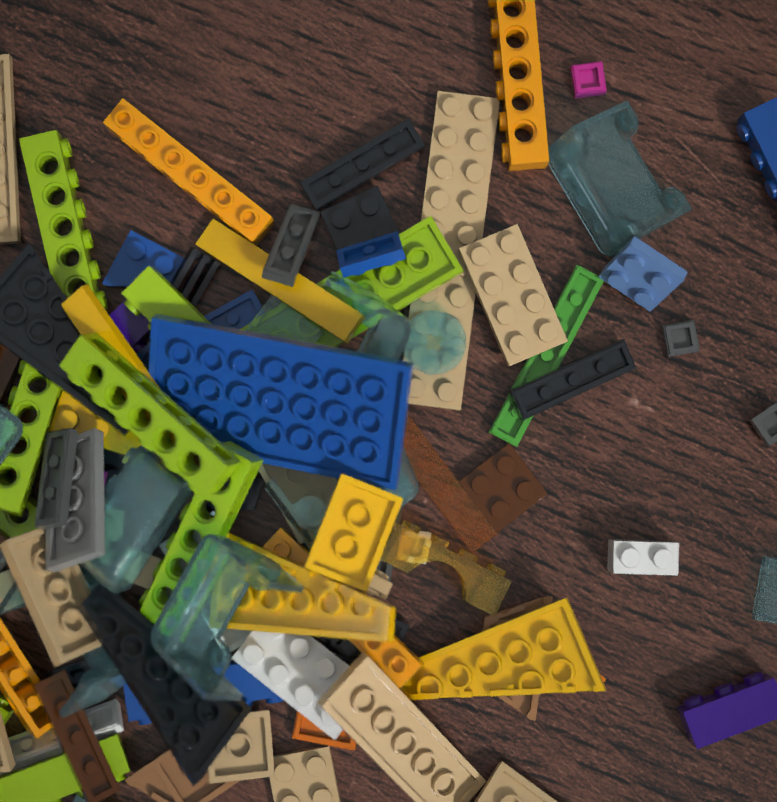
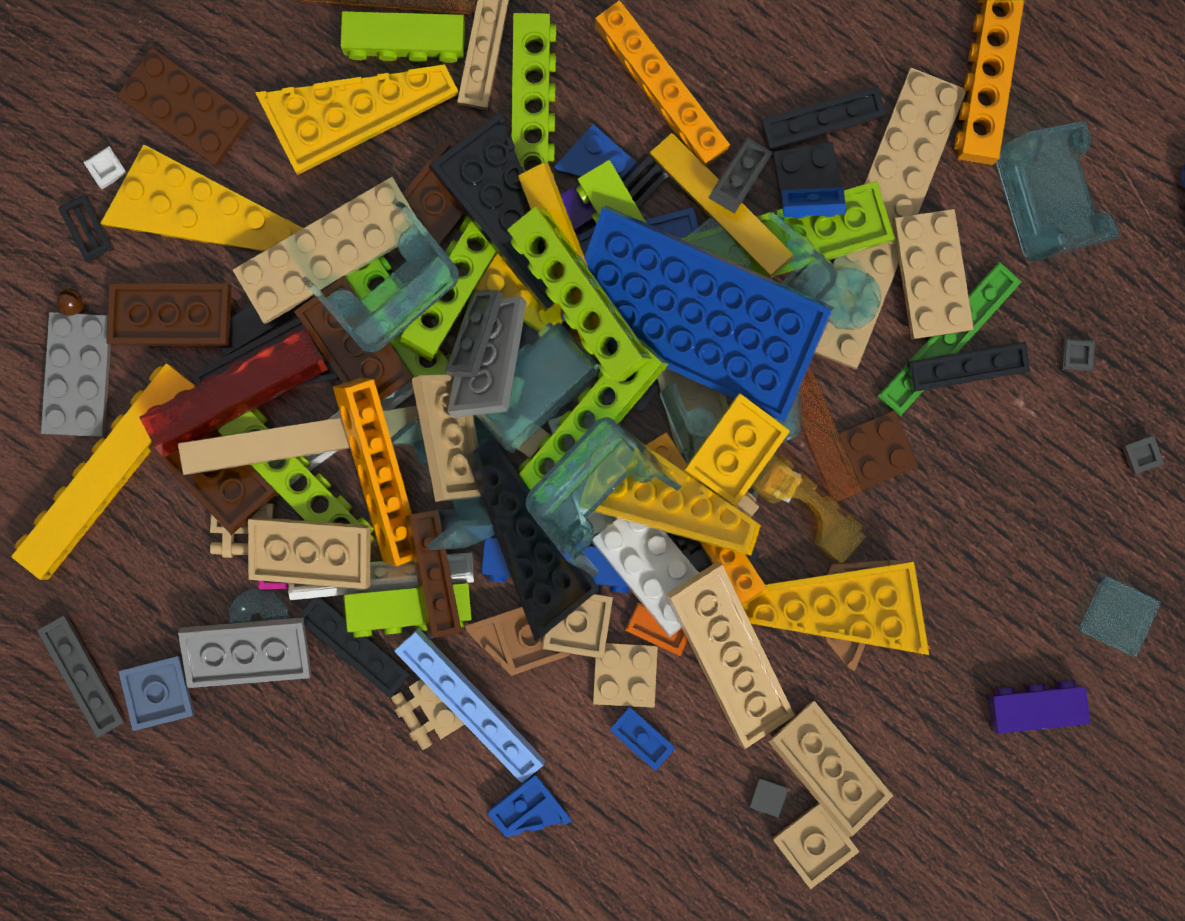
camera: 10 degrees right, 0 degrees up
(588, 79) = (1053, 92): dark pink tile -> none
(642, 274) = (1059, 285): medium blue plate -> none
(643, 557) = (992, 546): white brick -> none

